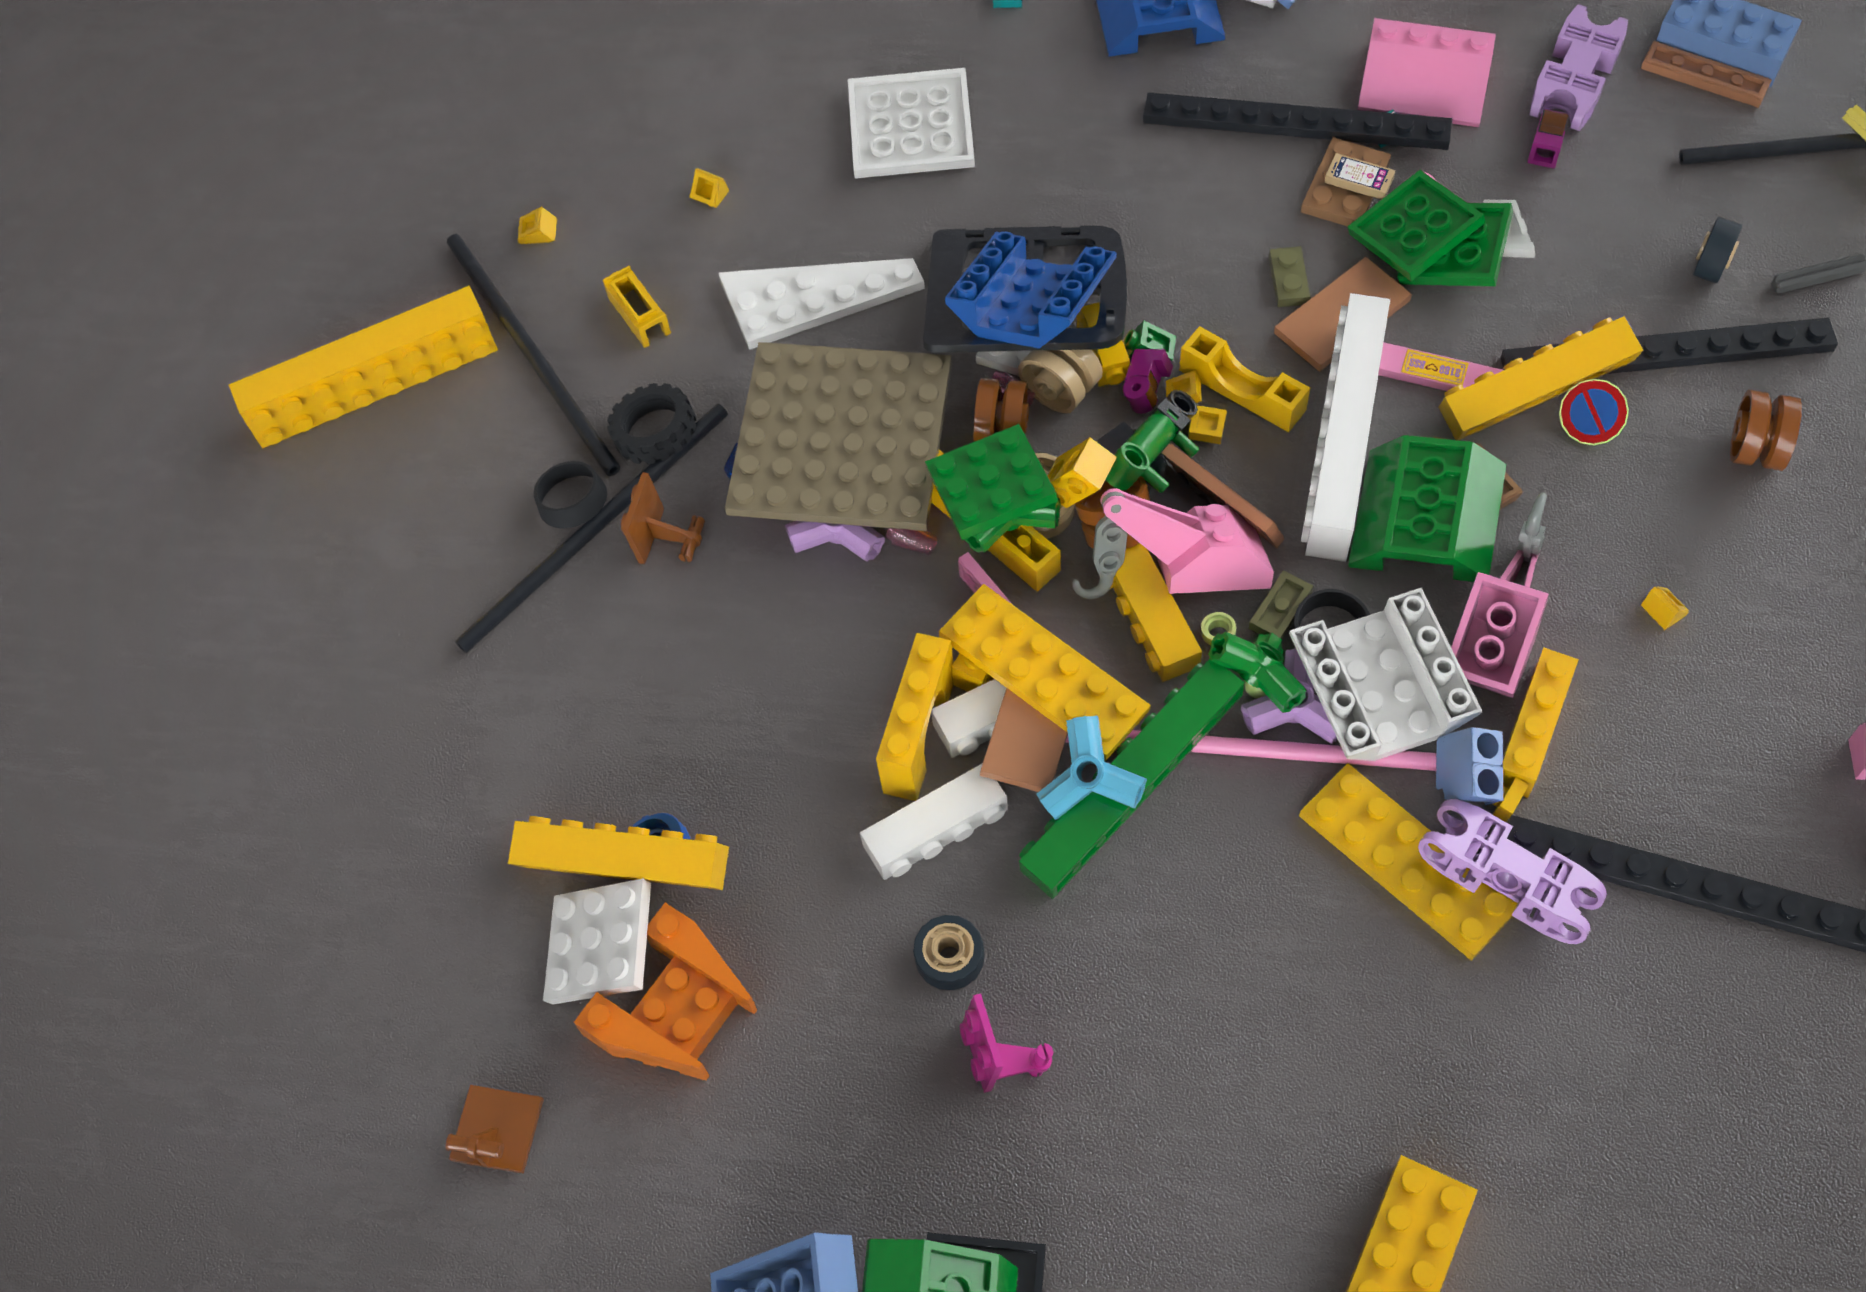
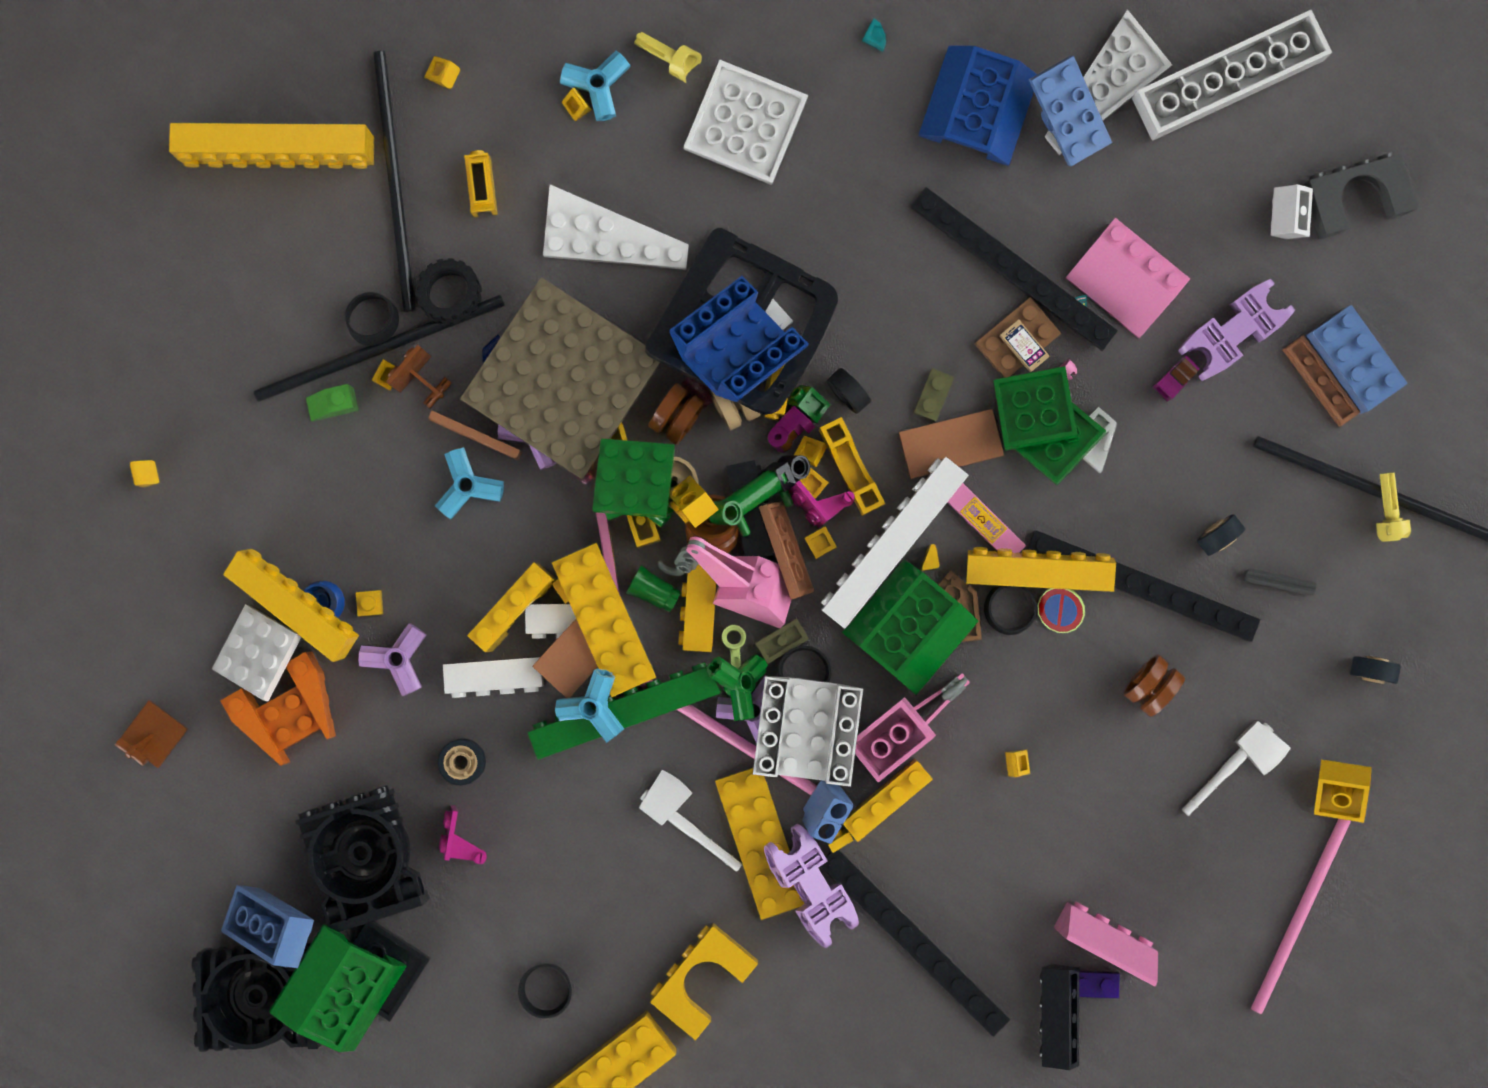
camera: 15 degrees right, 25 degrees up
(349, 800) = (144, 473): none -> yellow slope
(562, 605) = (332, 402): none -> bright green slope
(616, 549) = (381, 374): none -> yellow slope
(723, 157) = (600, 97): none -> medium azure piece
(723, 817) = (369, 603): none -> yellow plate
(764, 559) = (475, 435): none -> nougat tile
(774, 634) = (481, 487): none -> medium azure piece
(796, 843) = (382, 658): none -> lavender piece
(806, 99) = (680, 61): none -> light yellow piece
(859, 1067) = (320, 831): none -> black brick
(1085, 622) = (653, 589): none -> green plant
(1193, 291) = (848, 390): none -> black tyre
(1227, 436) = (819, 511): none -> dark pink plate
(1247, 1168) = (538, 1012): none -> black tyre
(1248, 877) = (661, 805): none -> white piece
(1258, 479) = (820, 542): none -> yellow plate
(1401, 425) = (930, 559): none -> yellow slope
(1418, 1119) = (714, 947): none -> yellow arch
(1528, 468) = (988, 614): none -> black tyre

